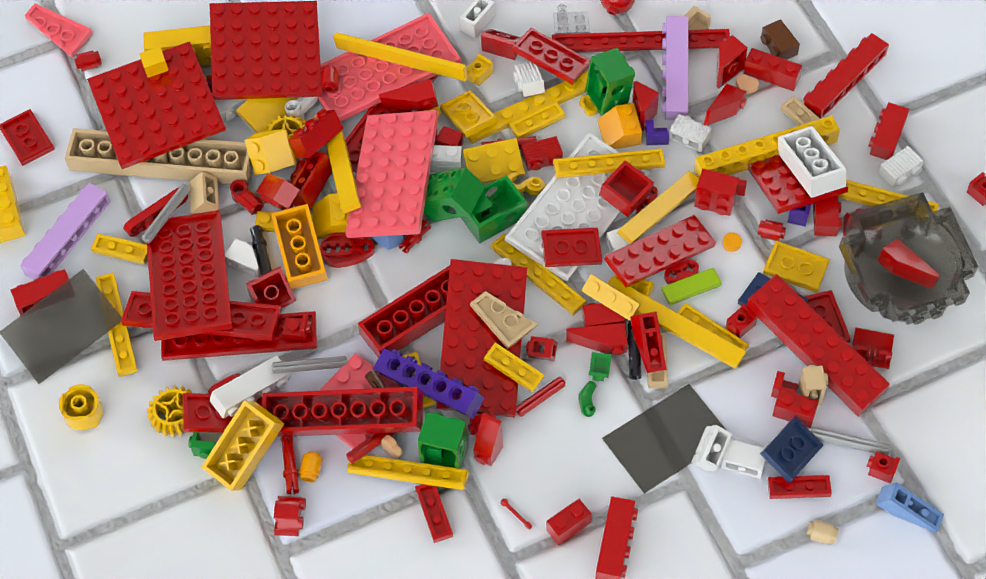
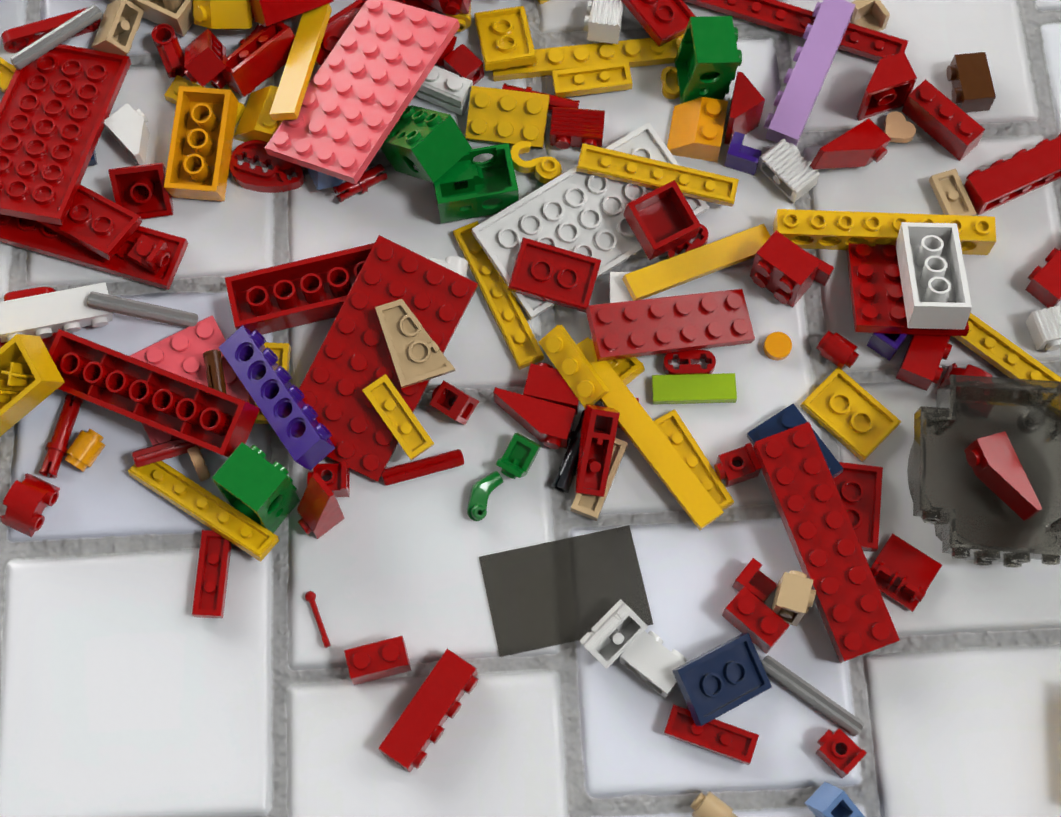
camera: 20 degrees right, 10 degrees up
(259, 245) = (158, 123): black pin -> none

